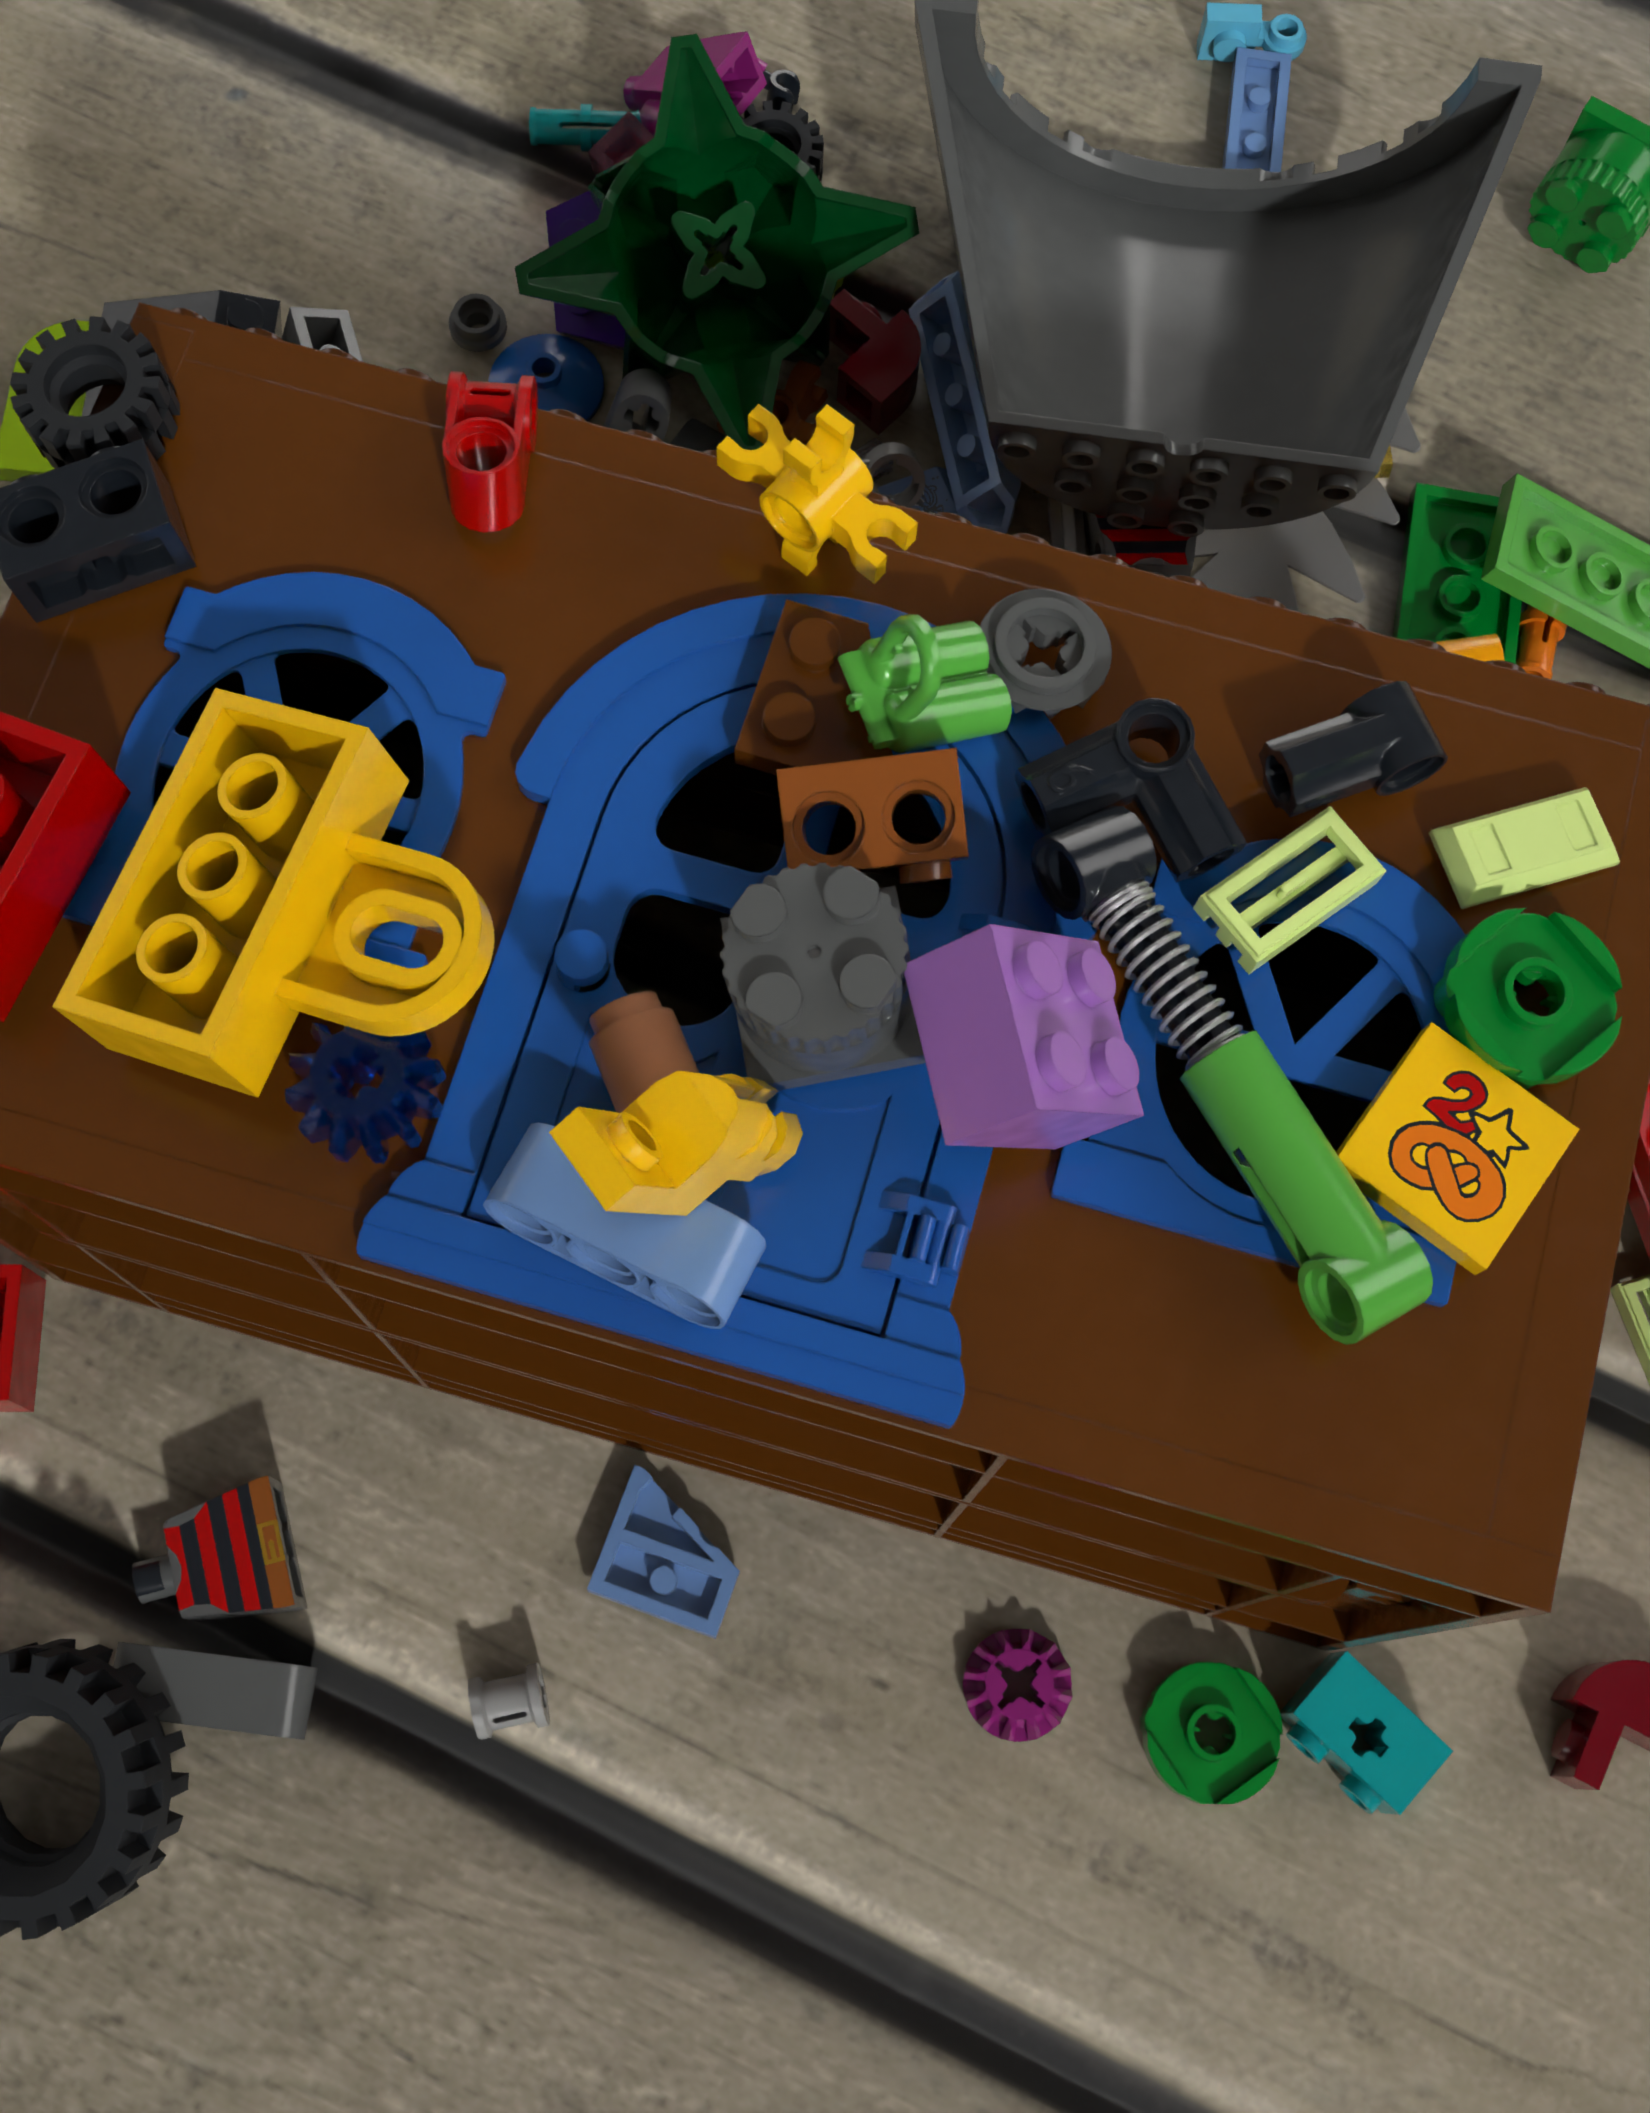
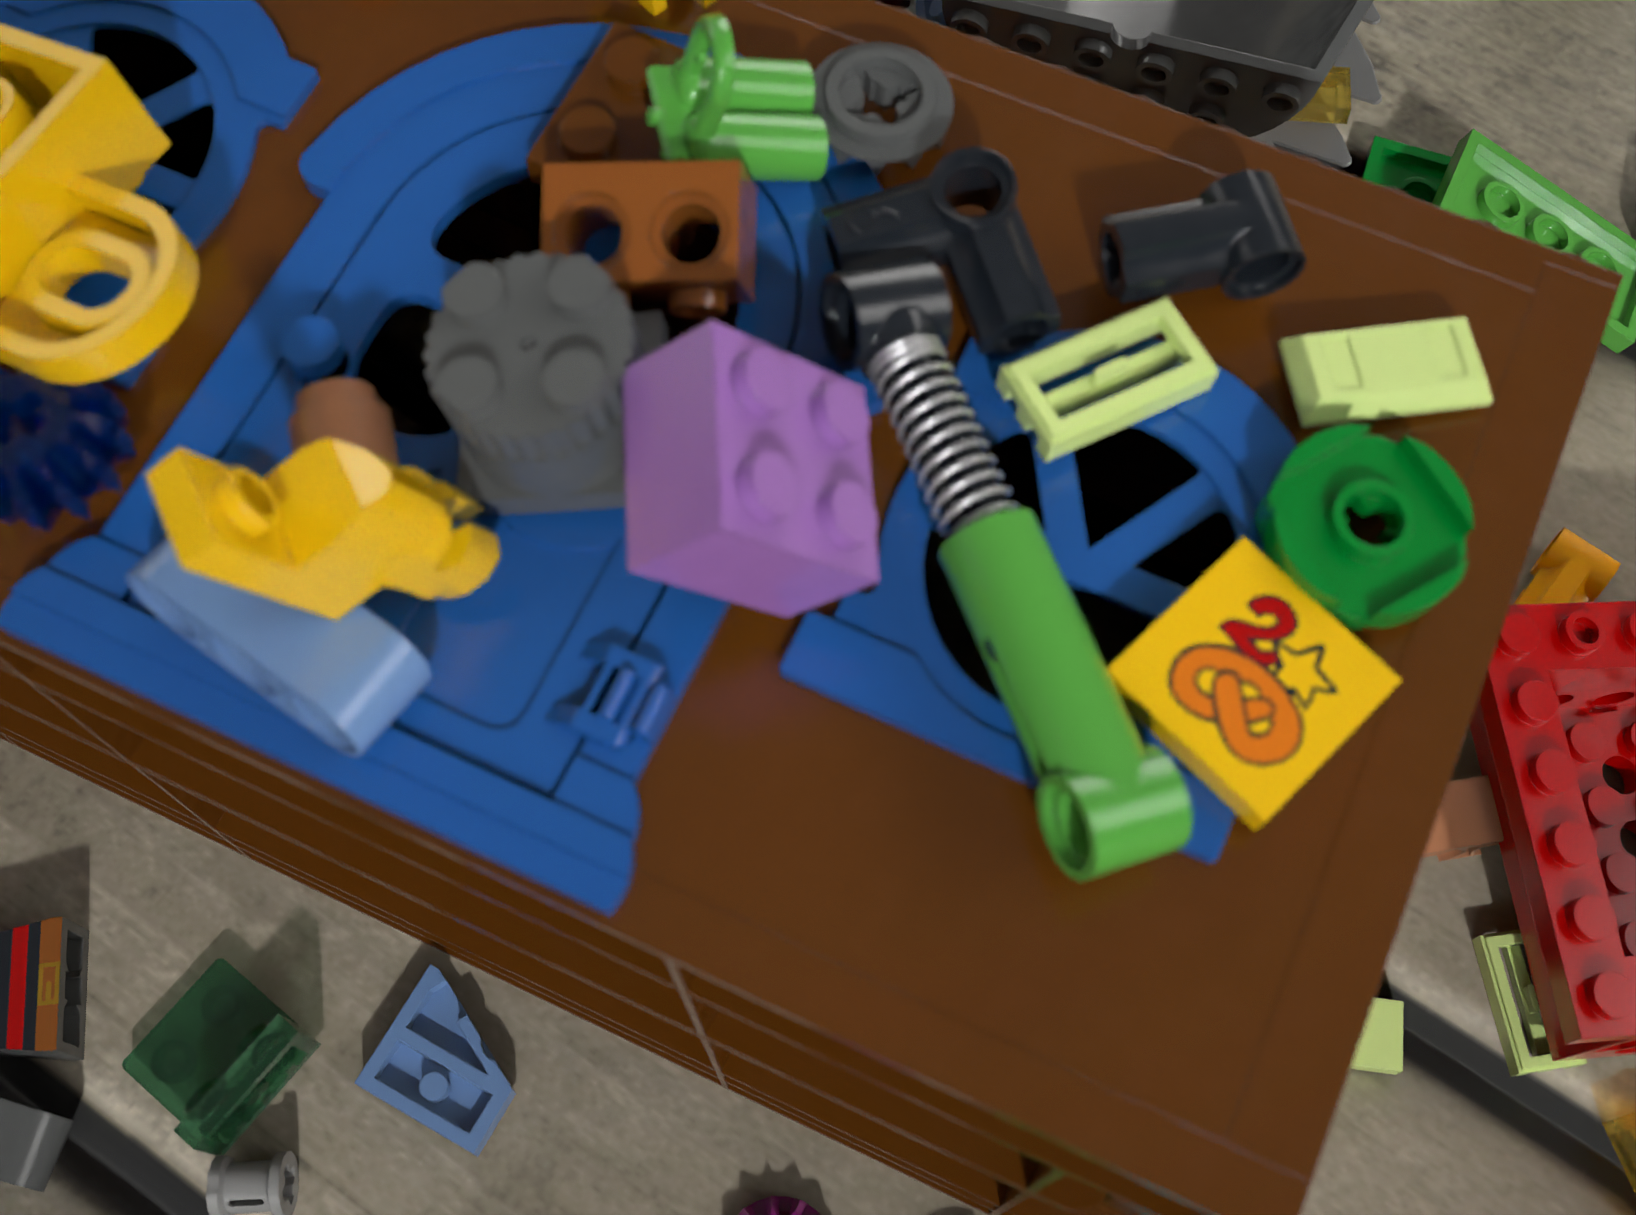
camera: 15 degrees right, 5 degrees down
(446, 1583) = (219, 1057): none -> clear green bracket

